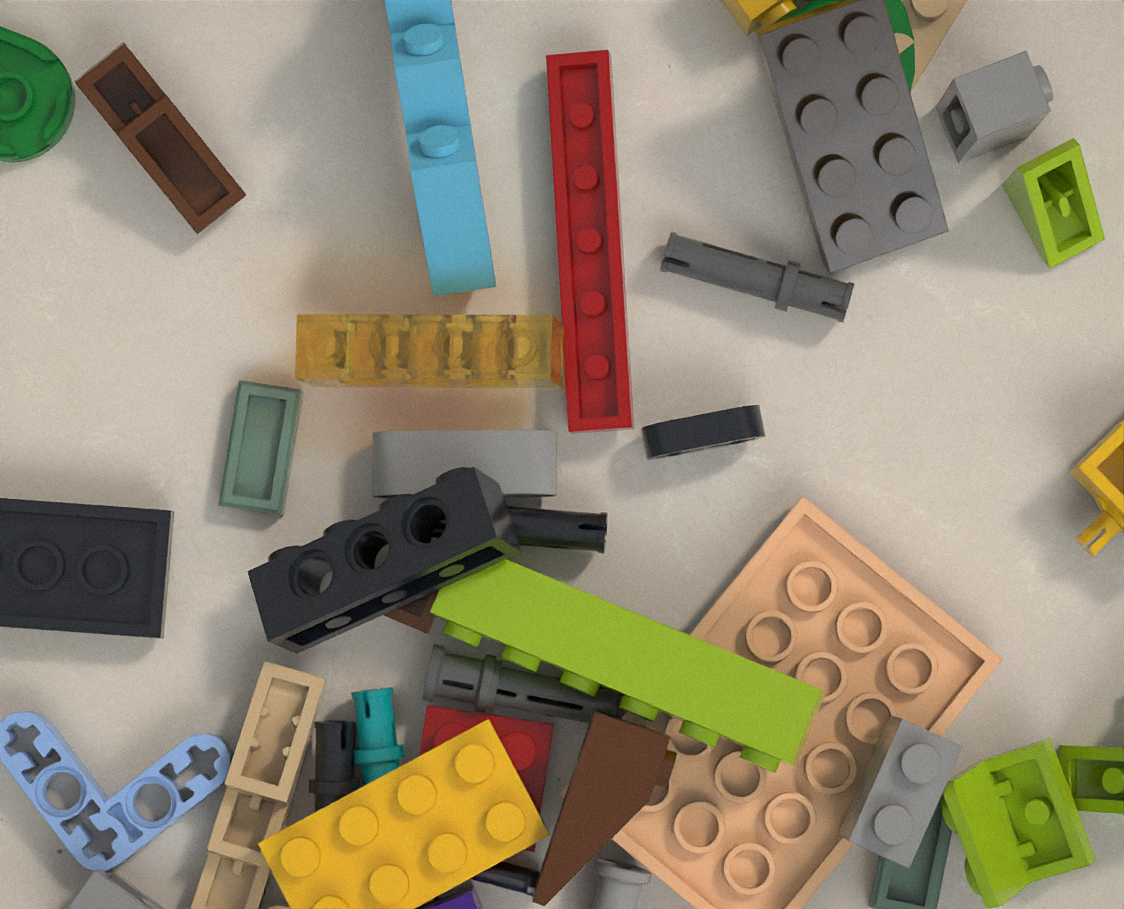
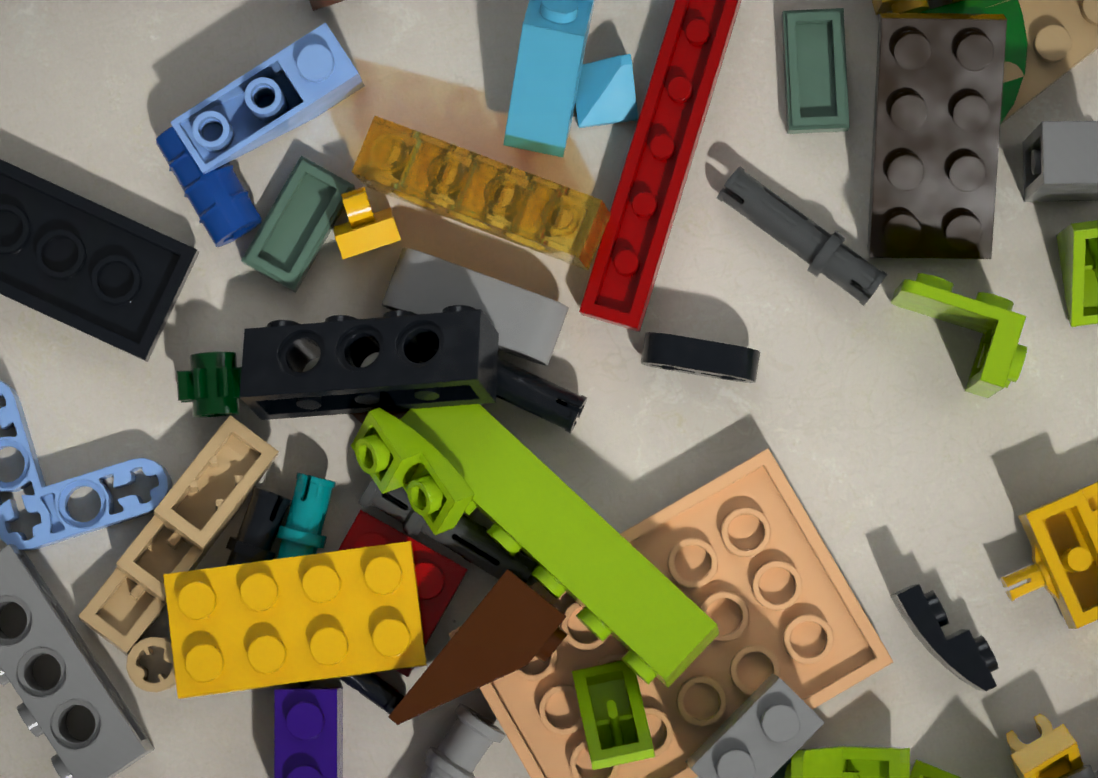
camera: 20 degrees right, 0 degrees up
(157, 438) = (215, 196): none -> blue axle
(187, 337) = (269, 100): none -> light blue slope
(234, 637) = (211, 384): none -> dark green gear
(328, 428) = (364, 229): none -> yellow tile
(451, 640) = (403, 458): none -> lime slope
(514, 208) = (606, 92): none -> medium azure slope
(709, 111) = (815, 71): none -> sand green tile
(751, 816) = (613, 715): none -> lime slope
(991, 316) = (998, 353): none -> lime bracket
(1060, 625) = (959, 652): none -> black slope

